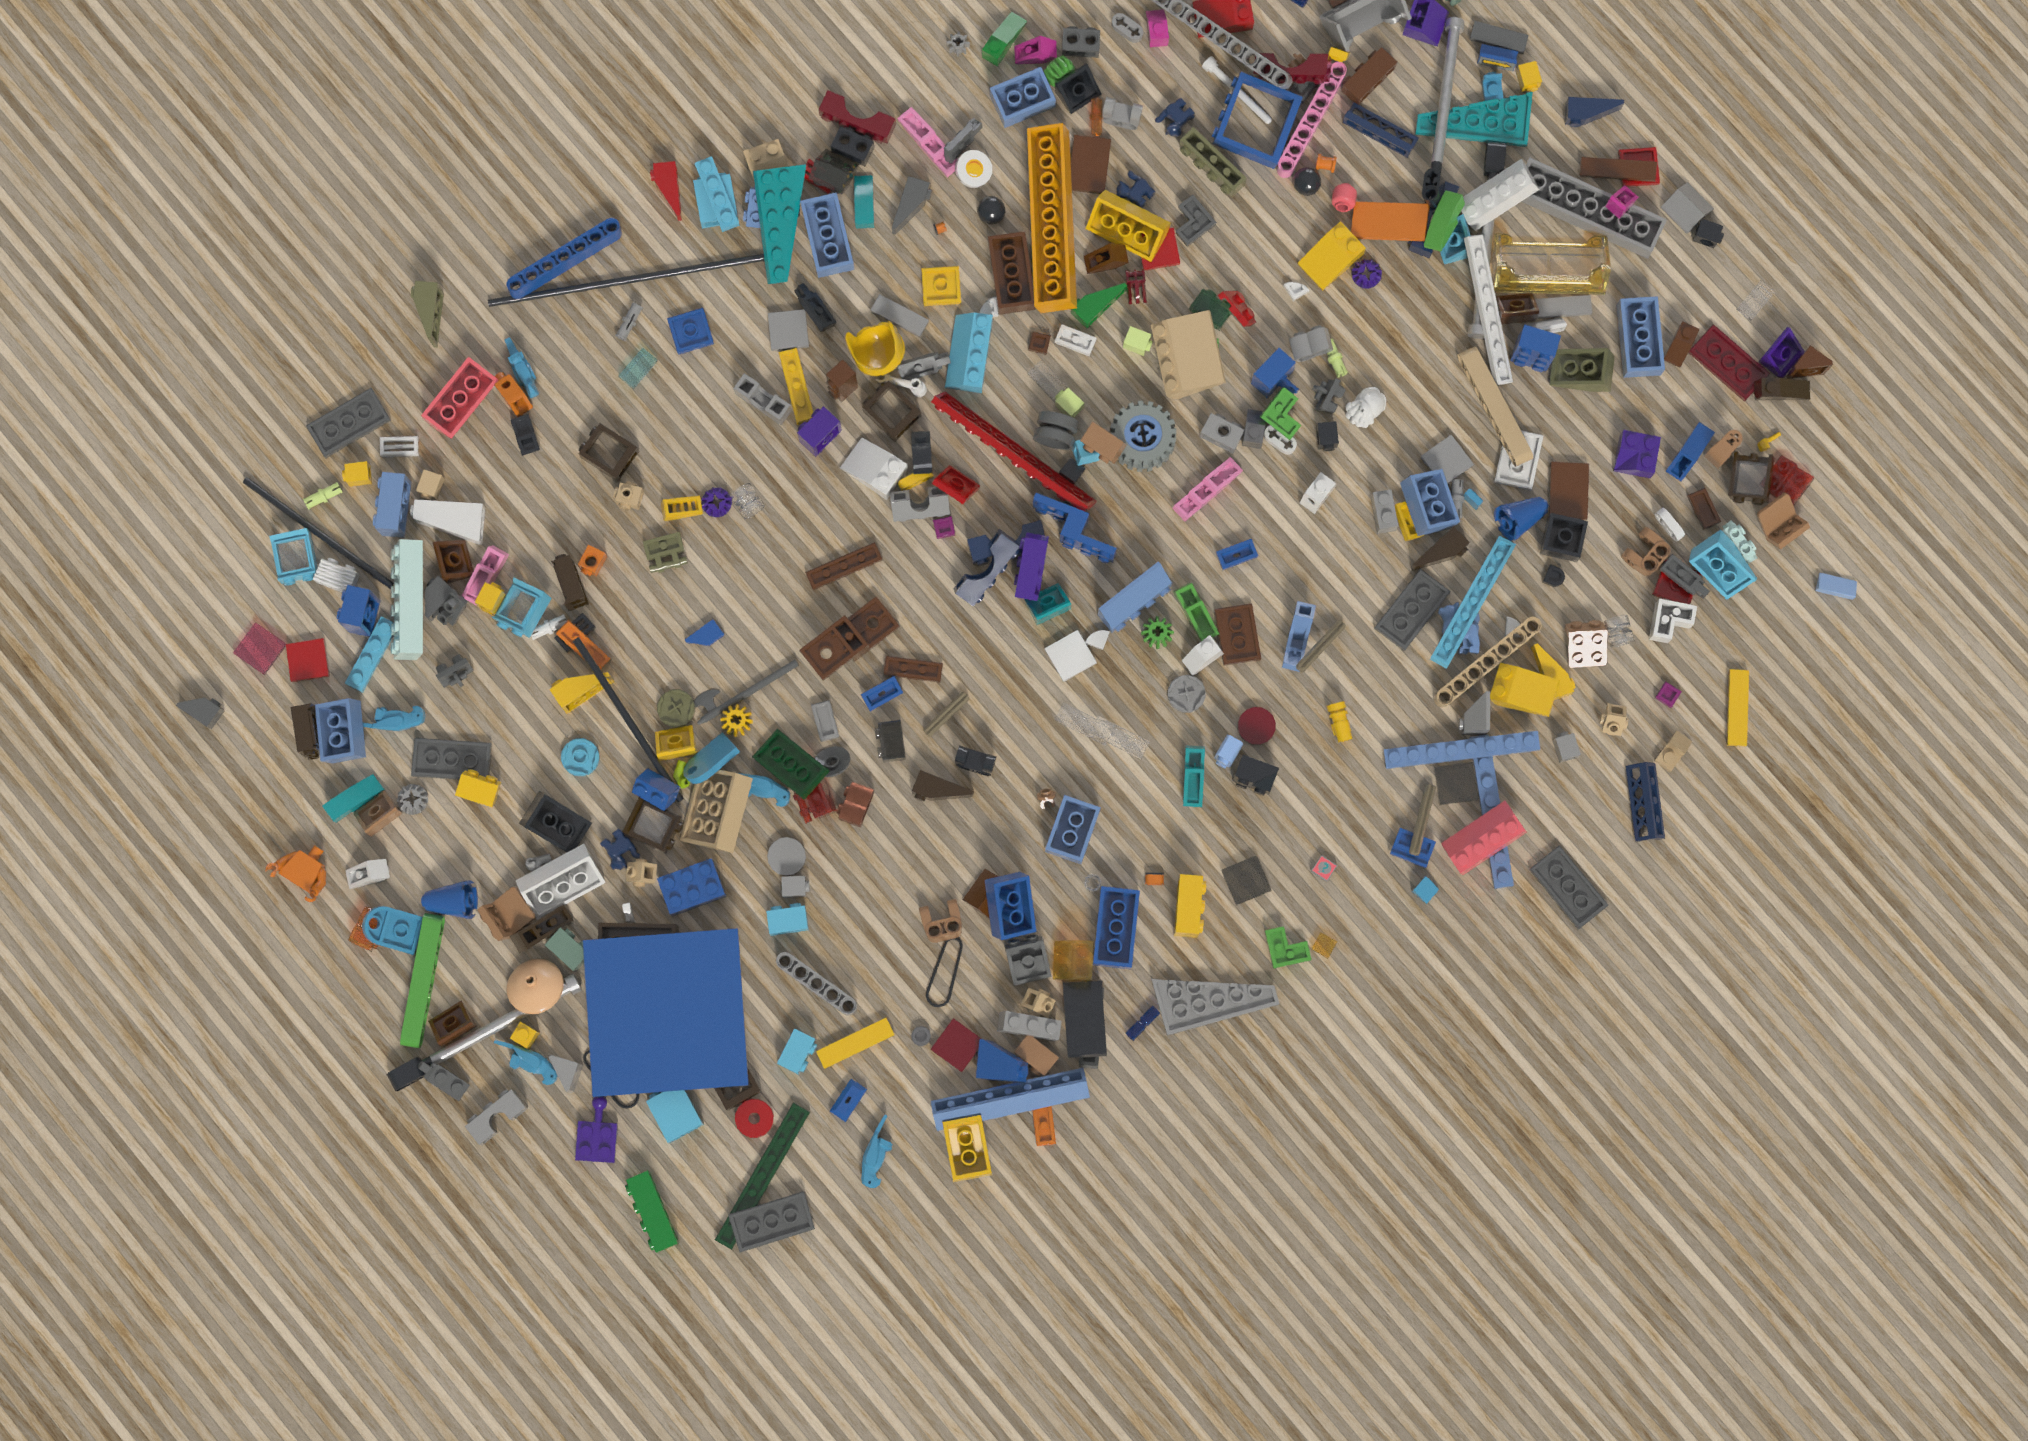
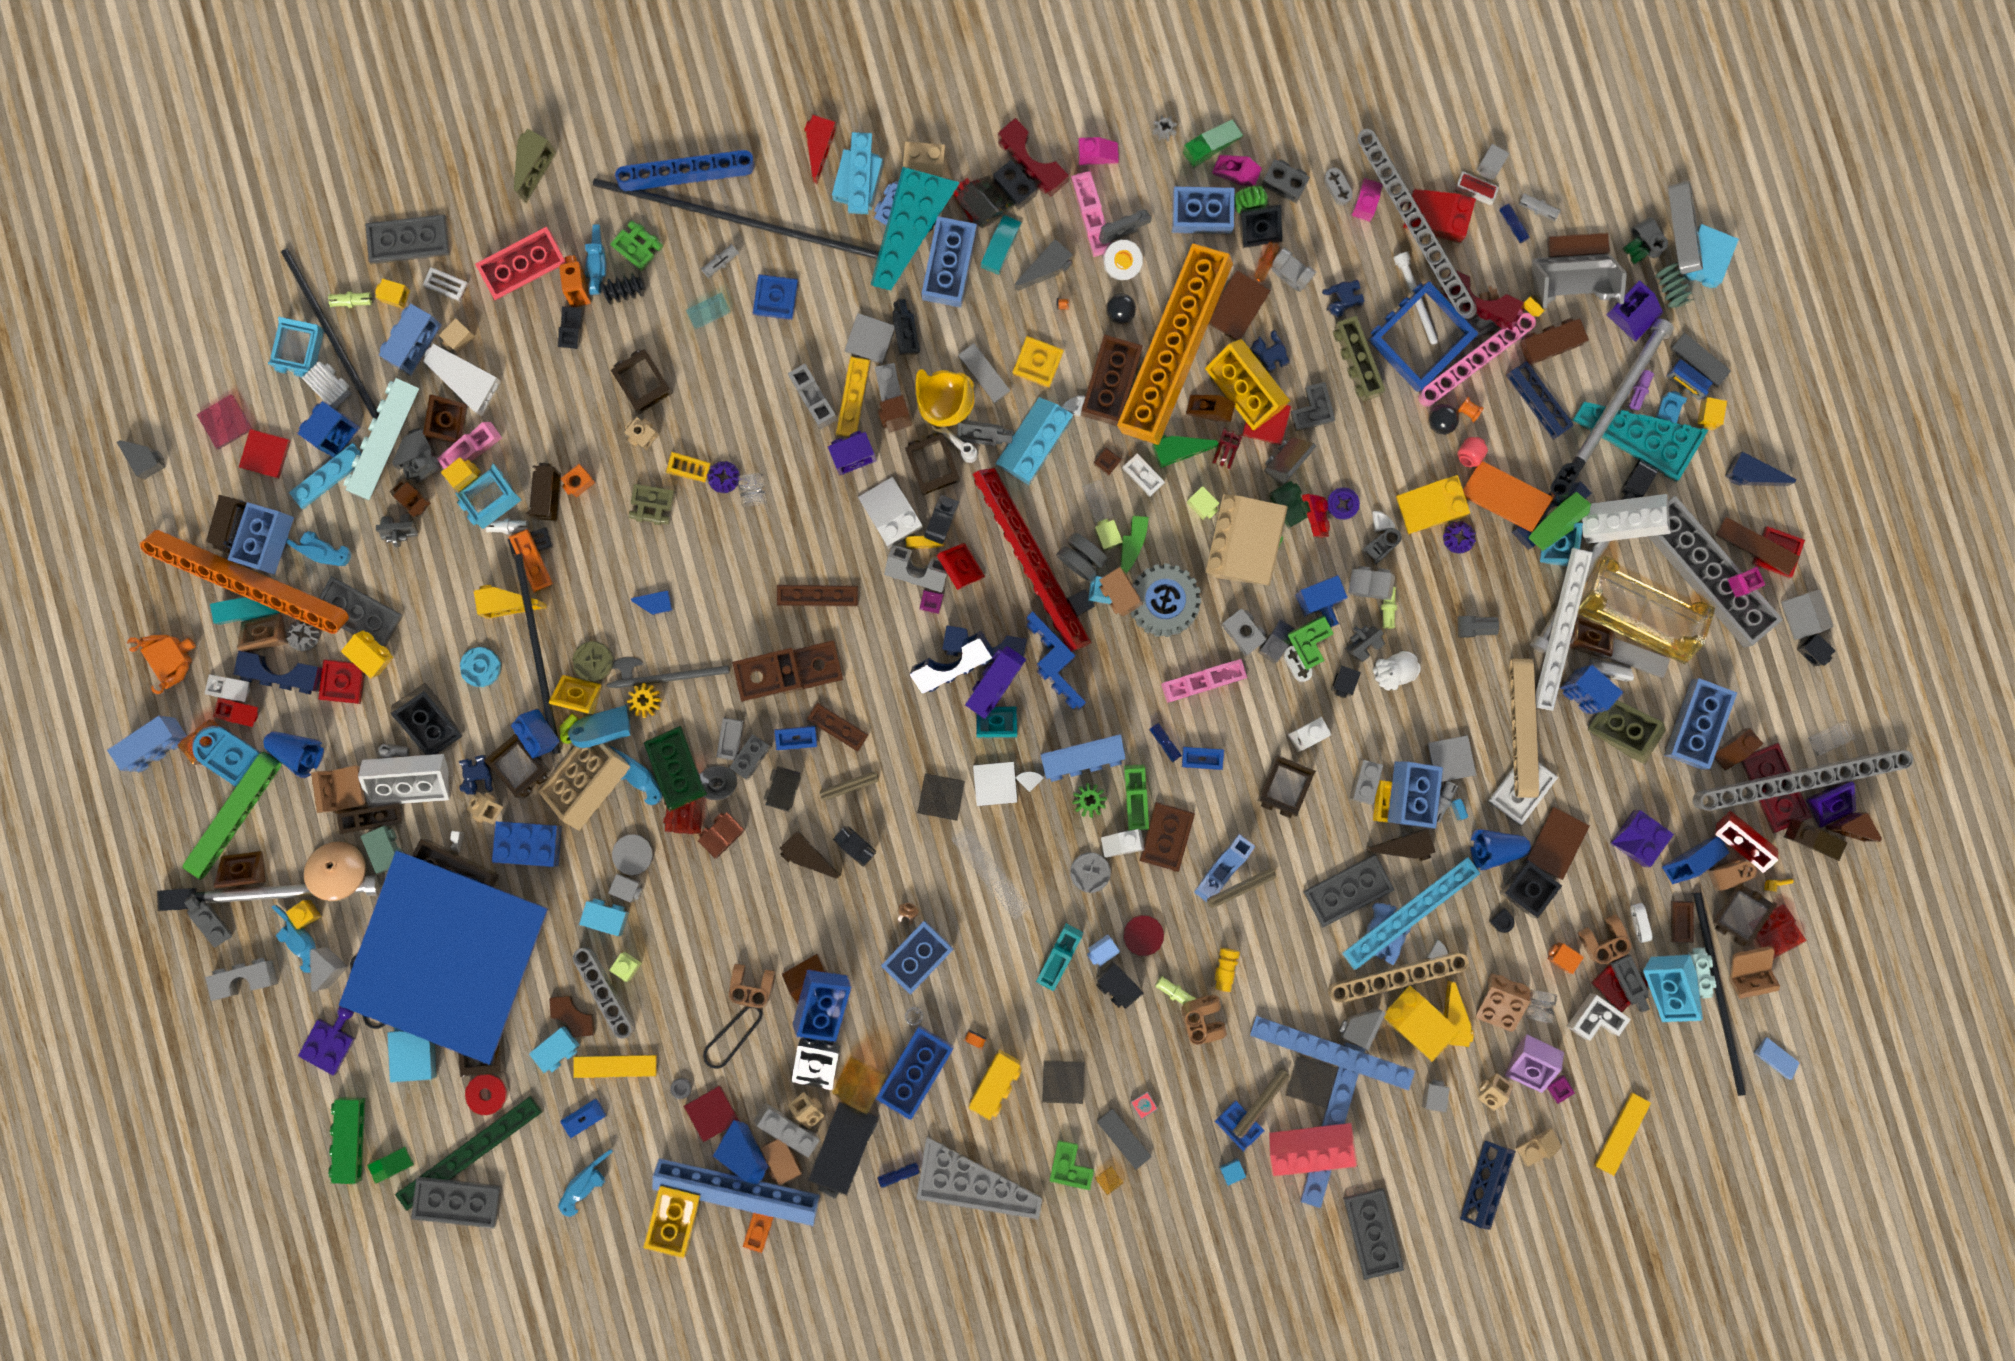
camera: 25 degrees right, 5 degrees up
(322, 950) = (147, 744): none -> medium blue brick
(342, 774) = (244, 581): none -> orange beam
(384, 890) = (235, 712): none -> red slope
(431, 834) = (254, 666): none -> dark blue arch
(453, 639) = (410, 497): none -> reddish brown brick
(465, 824) = (341, 682): none -> red tile
(548, 345) = (634, 251): none -> bright green plate
(557, 380) = (623, 288): none -> black piece
(698, 1217) = (390, 1165): none -> green slope
(789, 1016) = (565, 1010): none -> reddish brown tile
(821, 358) = (887, 381): none -> light grey brick
(825, 953) = (625, 966): none -> yellowish green brick
(850, 726) = (750, 757): none -> dark grey brick
(909, 88) = (1097, 151): none -> dark pink slope
(1029, 688) = (941, 797): none -> clear smoke tile
(1094, 400) = (1132, 544): none -> bright green slope
(1192, 272) = (1288, 460): none -> dark grey slope
(1196, 554) = (1167, 745): none -> clear blue piece
(1252, 281) = (1343, 494): none -> dark purple gear
(1304, 311) = (1381, 547): none -> dark grey piece
(1305, 761) = (1174, 991): none -> yellowish green pin
(1318, 545) = (1286, 786): none -> window
(1320, 904) = (1124, 1139): none -> dark grey tile
(1349, 781) = (1208, 1032): none -> medium nougat piece
(1412, 342) = (1471, 626): none -> dark grey piece
(1461, 83) = (1641, 390): none -> medium lavender axle
(1619, 582) = (1564, 957): none -> orange brick
(1636, 682) = (1535, 1063): none -> lavender slope
(1724, 416) = (1746, 841): none -> red brick
(1752, 338) = (1812, 779): none -> light grey beam
(1763, 554) = (1720, 995): none -> black piece

